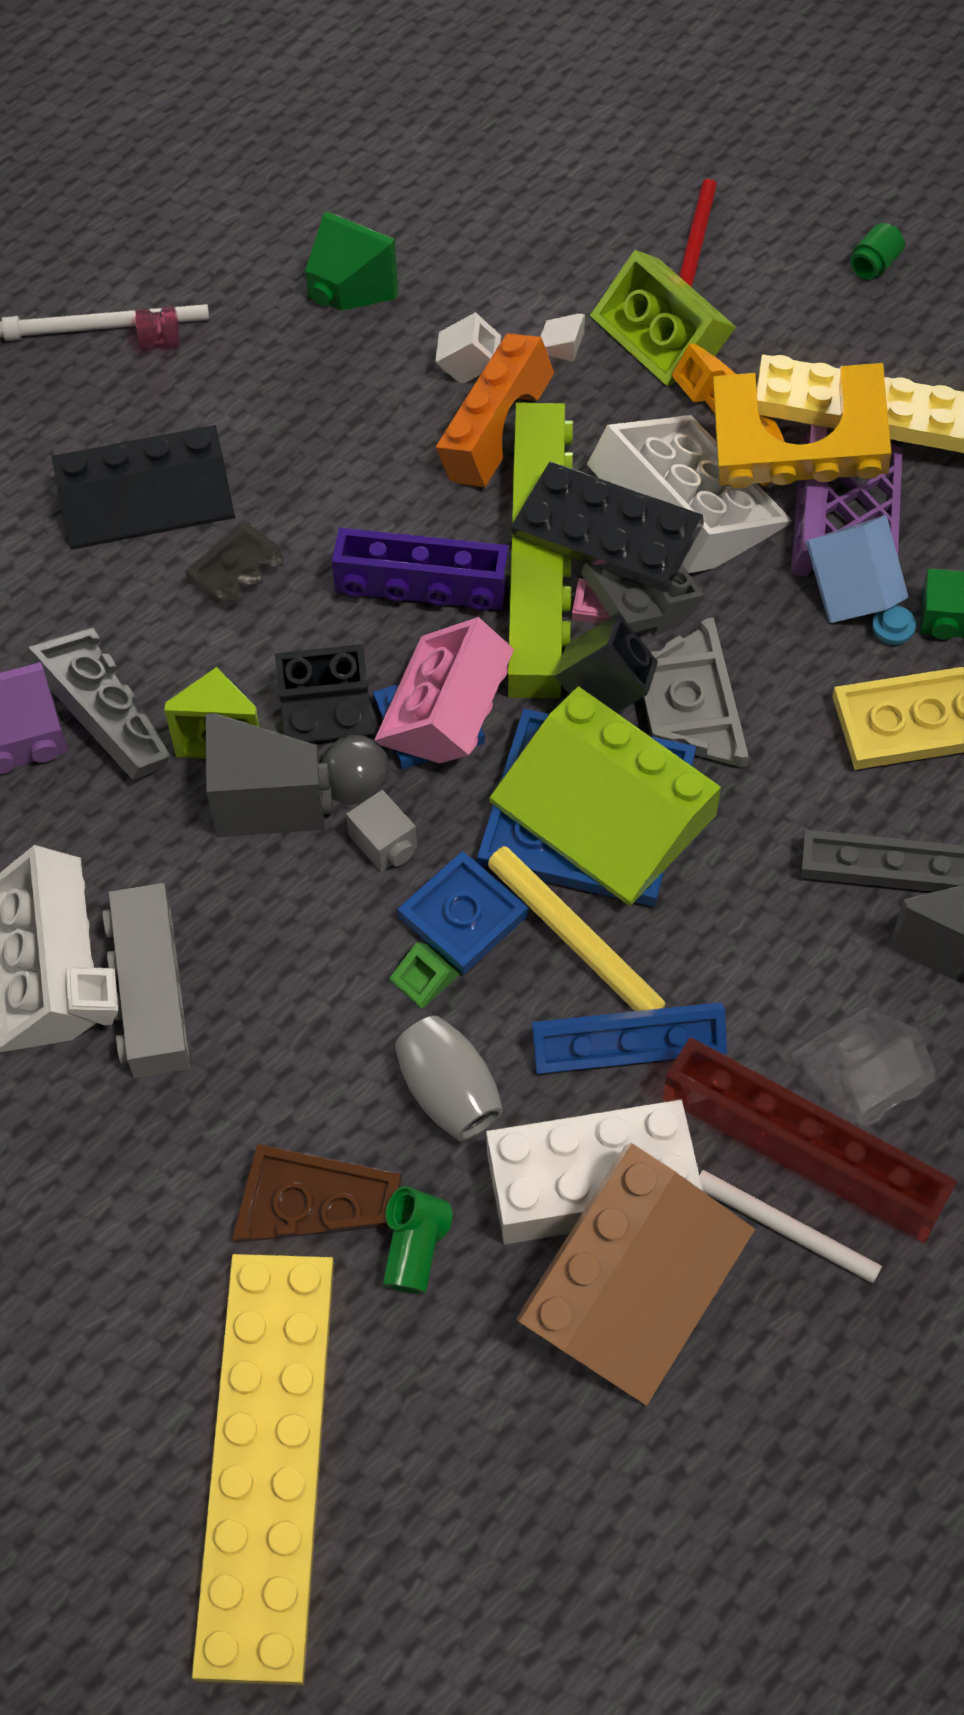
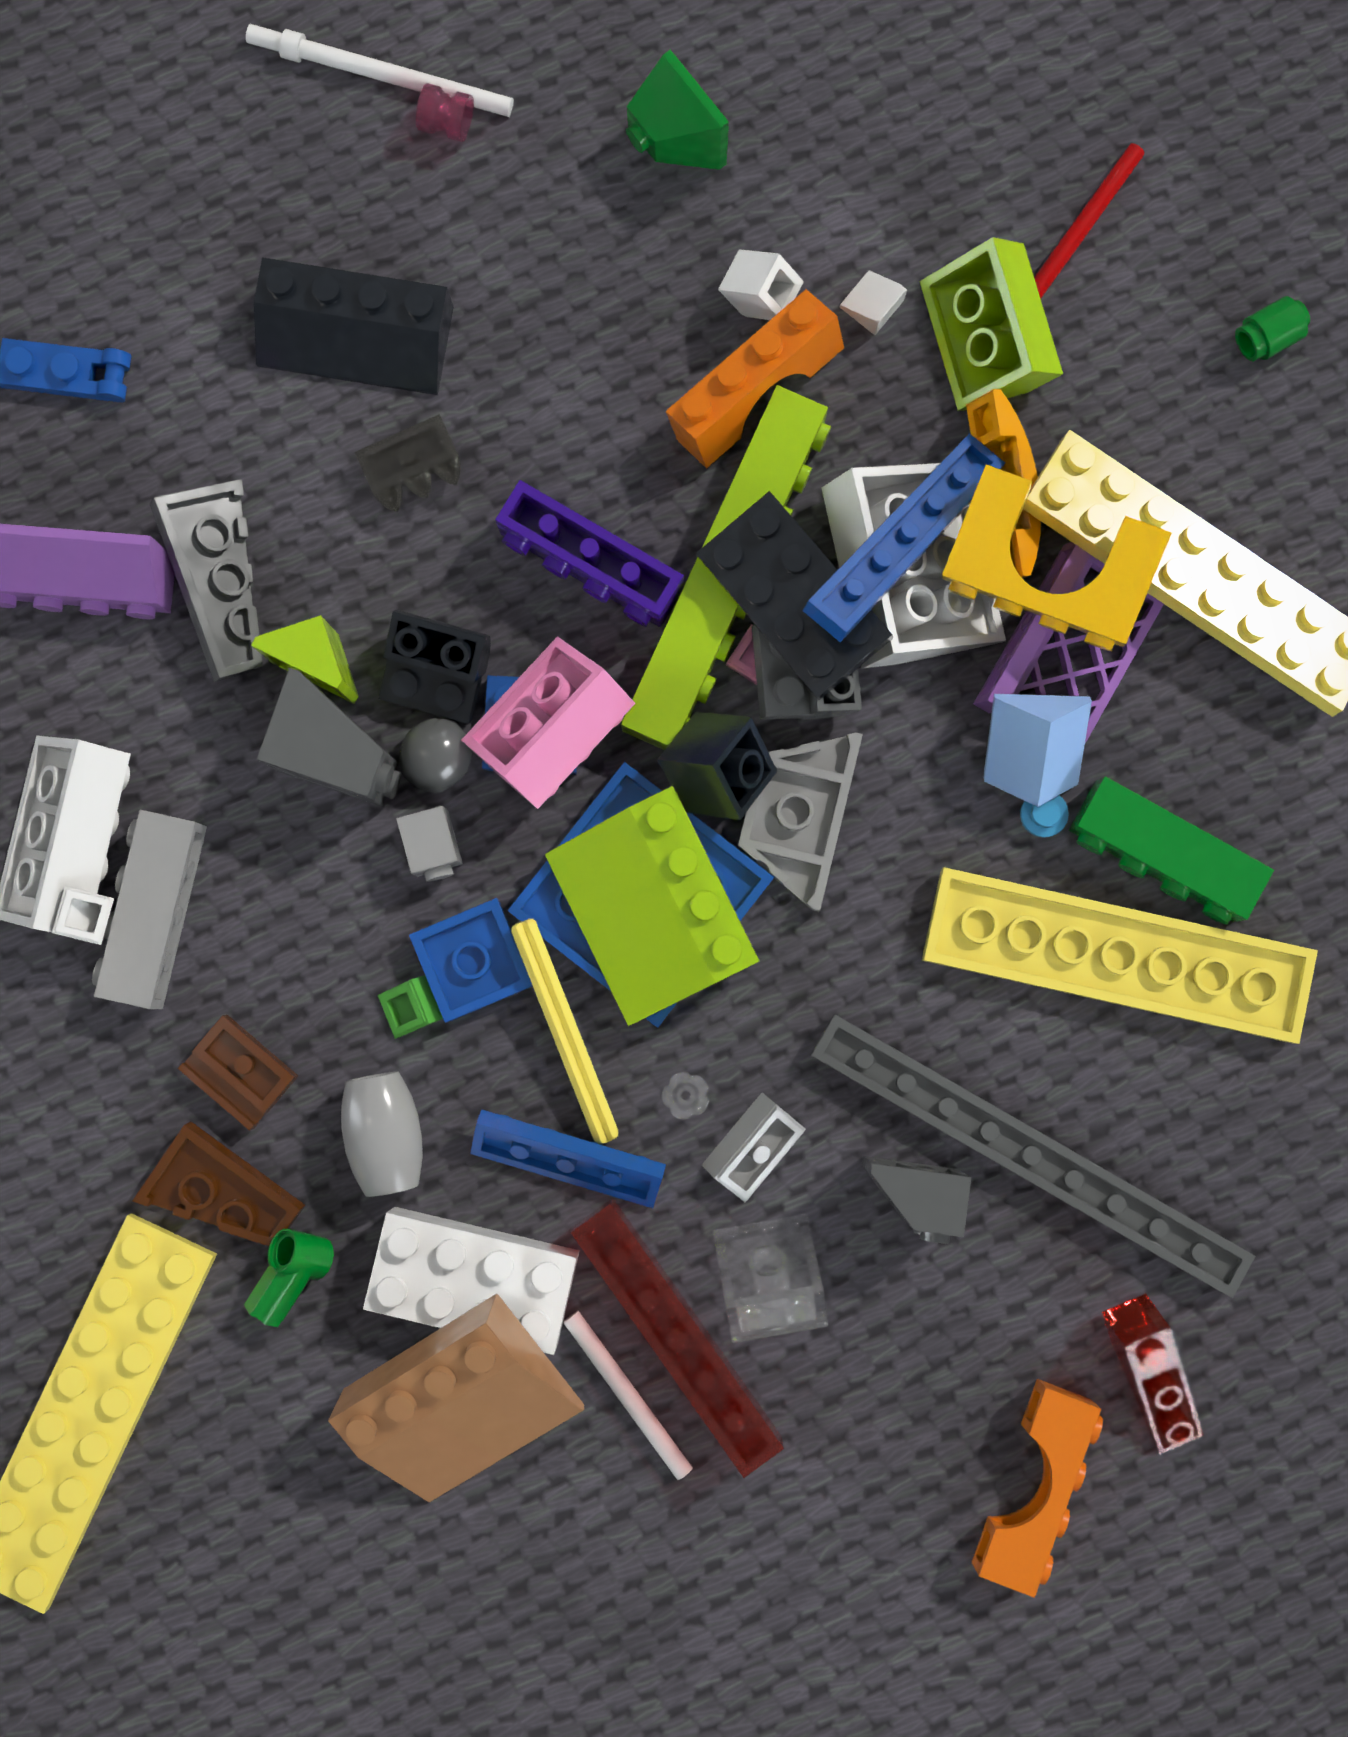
camera: 25 degrees right, 25 degrees up
(288, 1086) = (238, 1072): none -> reddish brown plate
(672, 456) = (900, 540): none -> blue plate
(713, 938) = (685, 1108): none -> clear plate
(790, 969) = (753, 1147): none -> light grey slope

